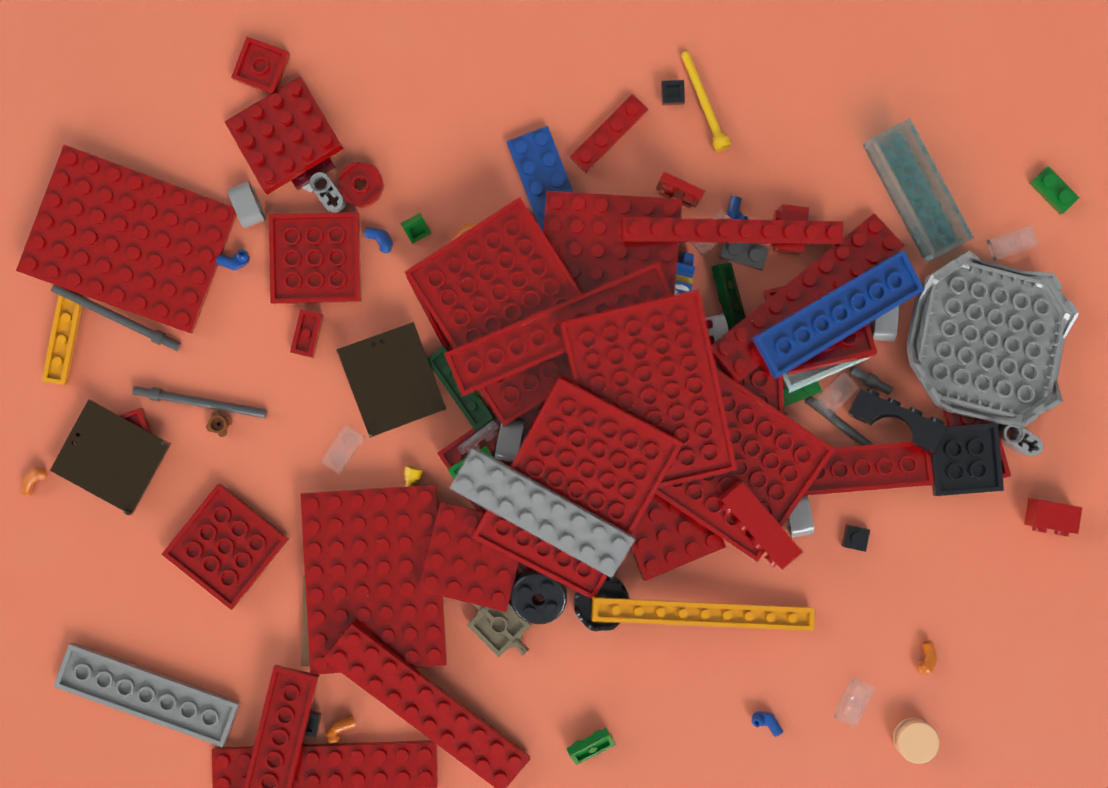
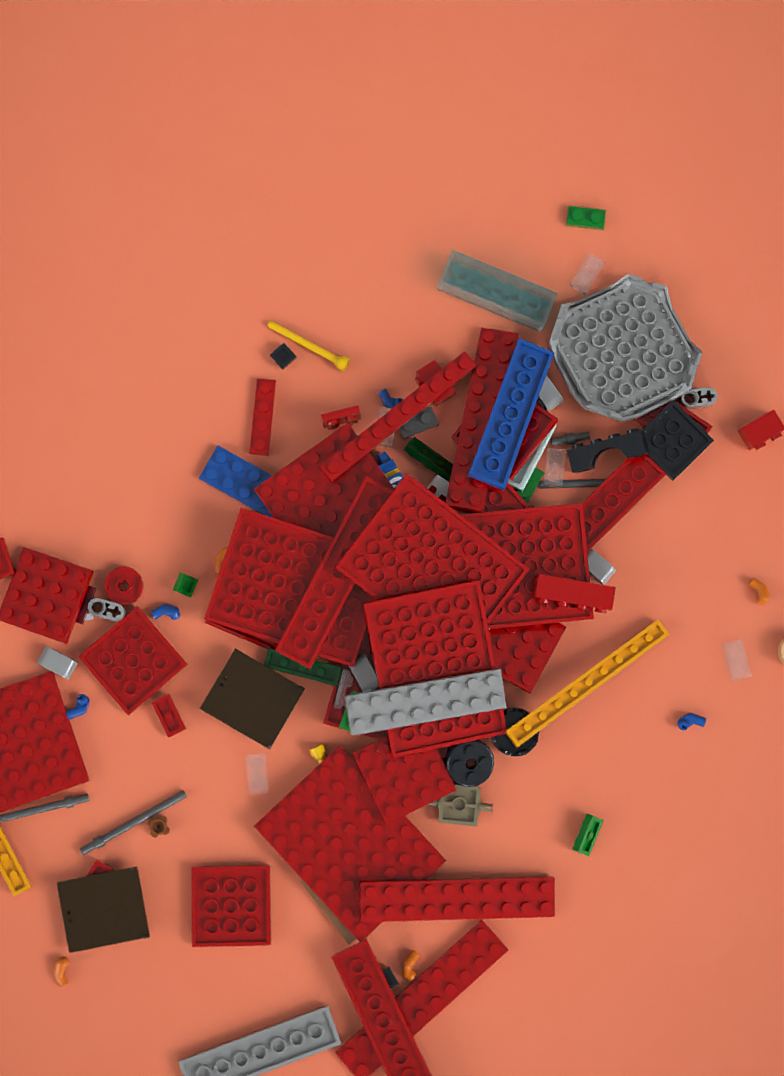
camera: 45 degrees left, 5 degrees down
(855, 538) = (647, 550): black plate -> none

